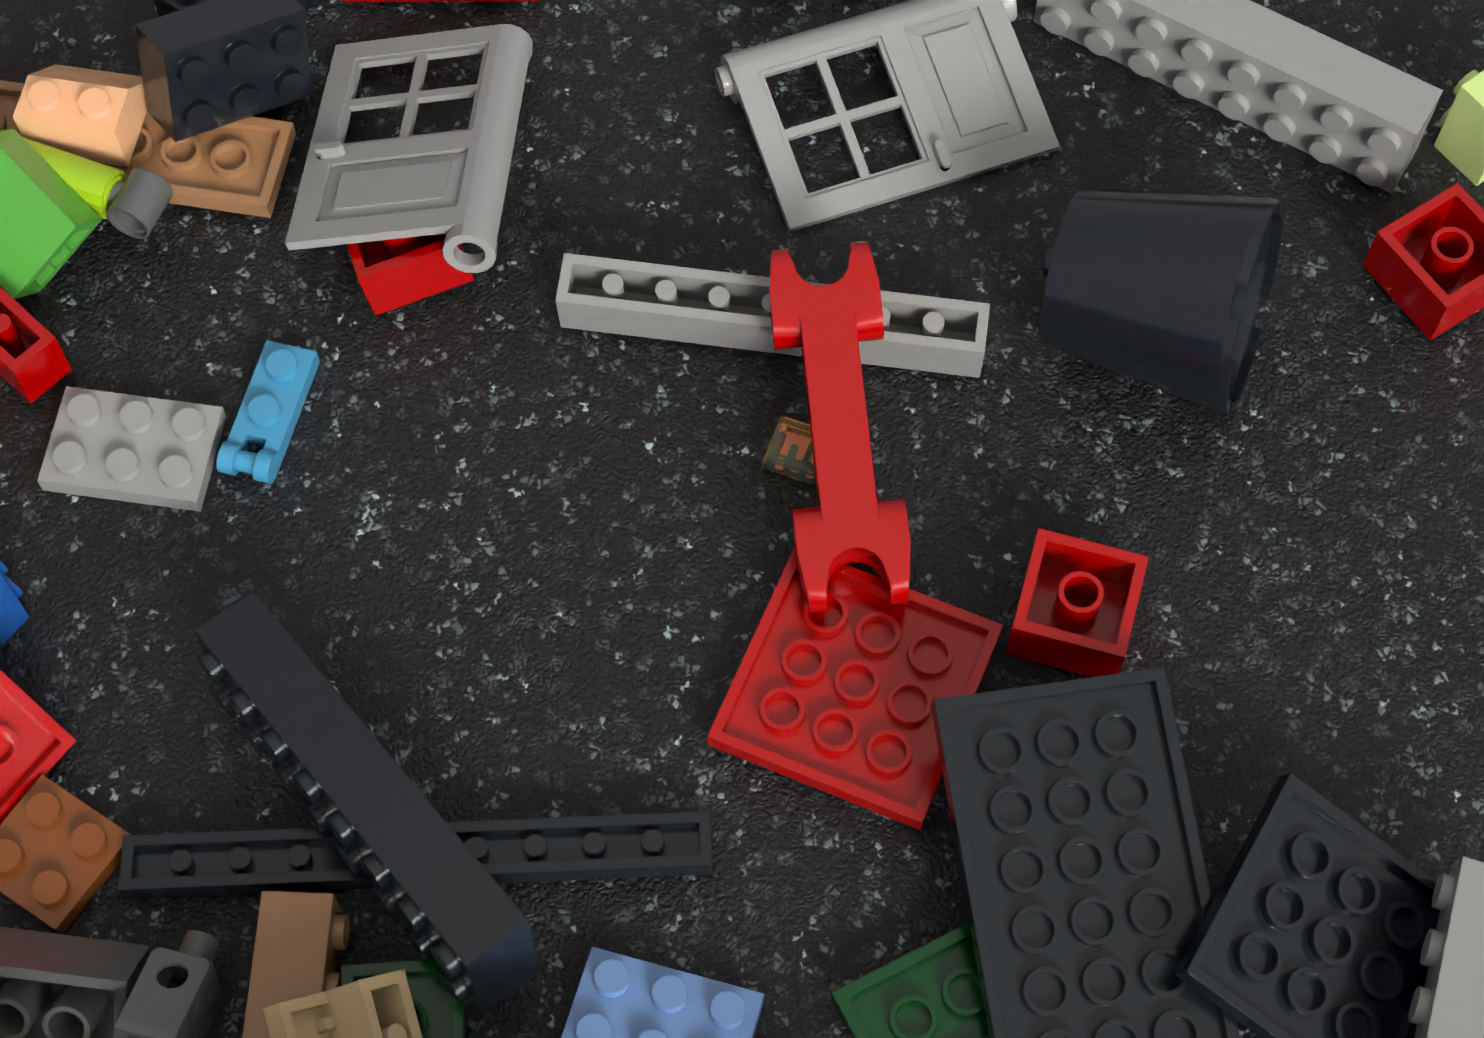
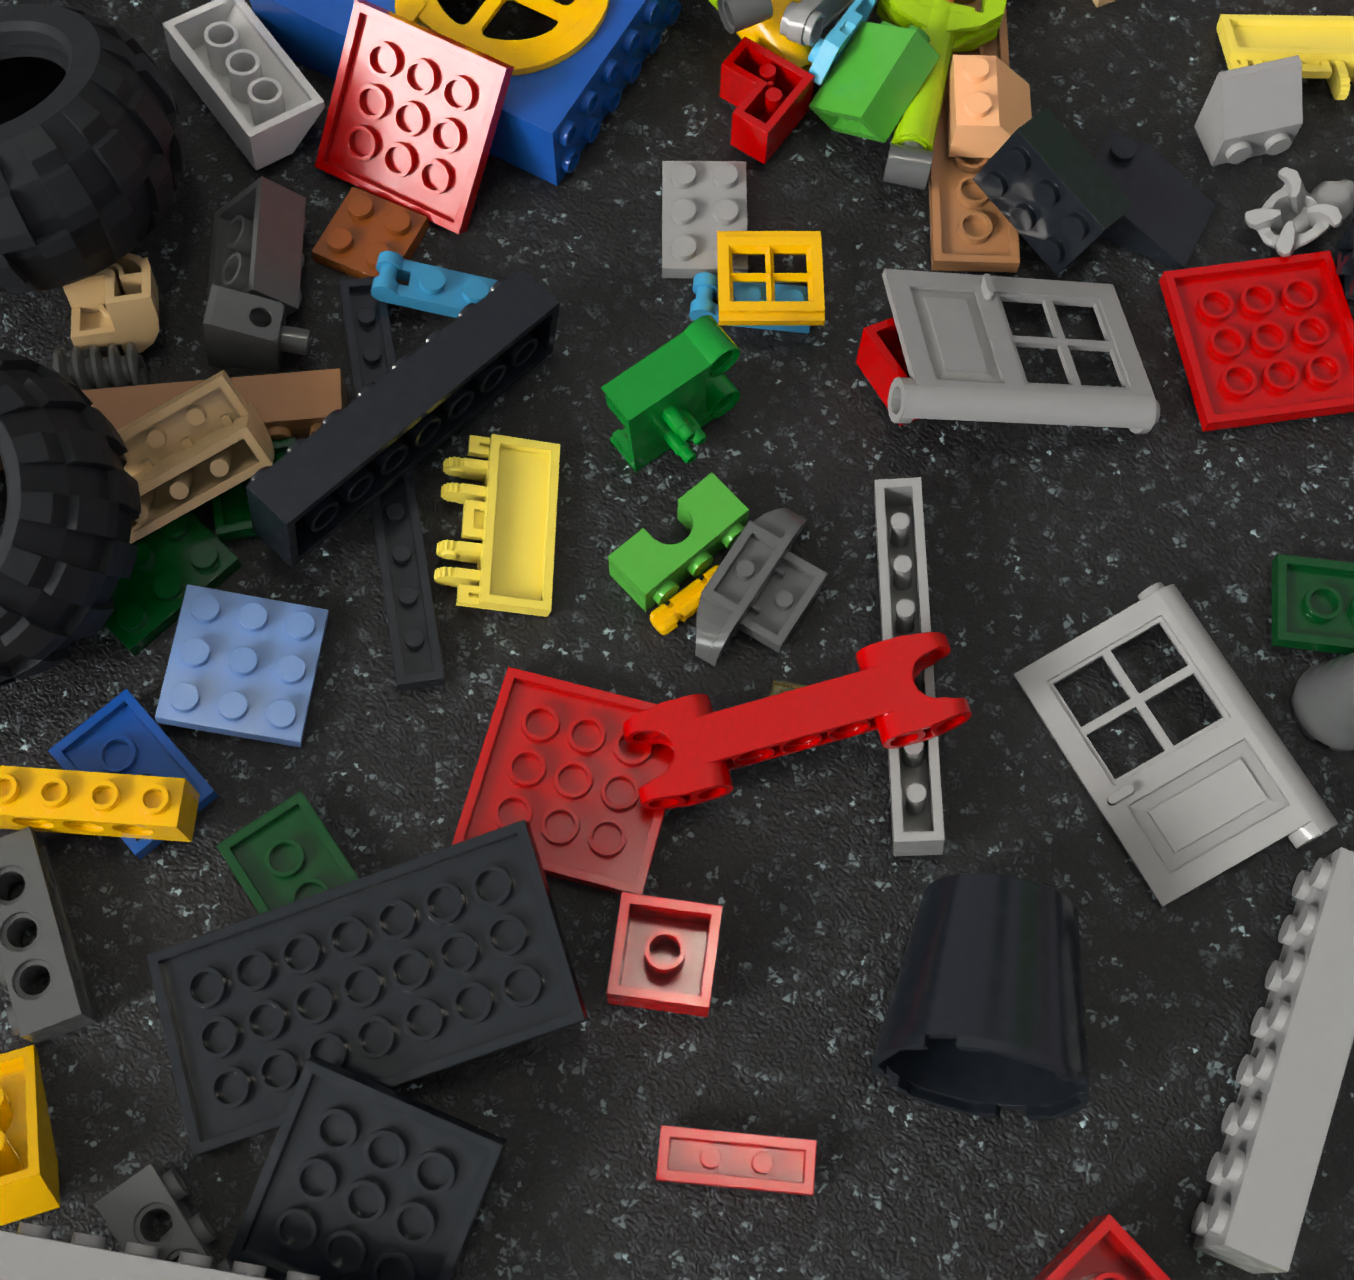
camera: 80 degrees right, 5 degrees up
(160, 771) = (429, 286): none -> dark azure plate
(203, 369) = (770, 311): none -> yellow piece
(404, 495) = (673, 394): none -> green piece
(511, 716) = (511, 517): none -> light yellow hinge
(556, 493) = (655, 569): none -> bright green arch
(648, 533) = (681, 605): none -> yellow axle
(653, 453) = (758, 587): none -> dark grey plate
(1294, 575) = (736, 1160): none -> plate

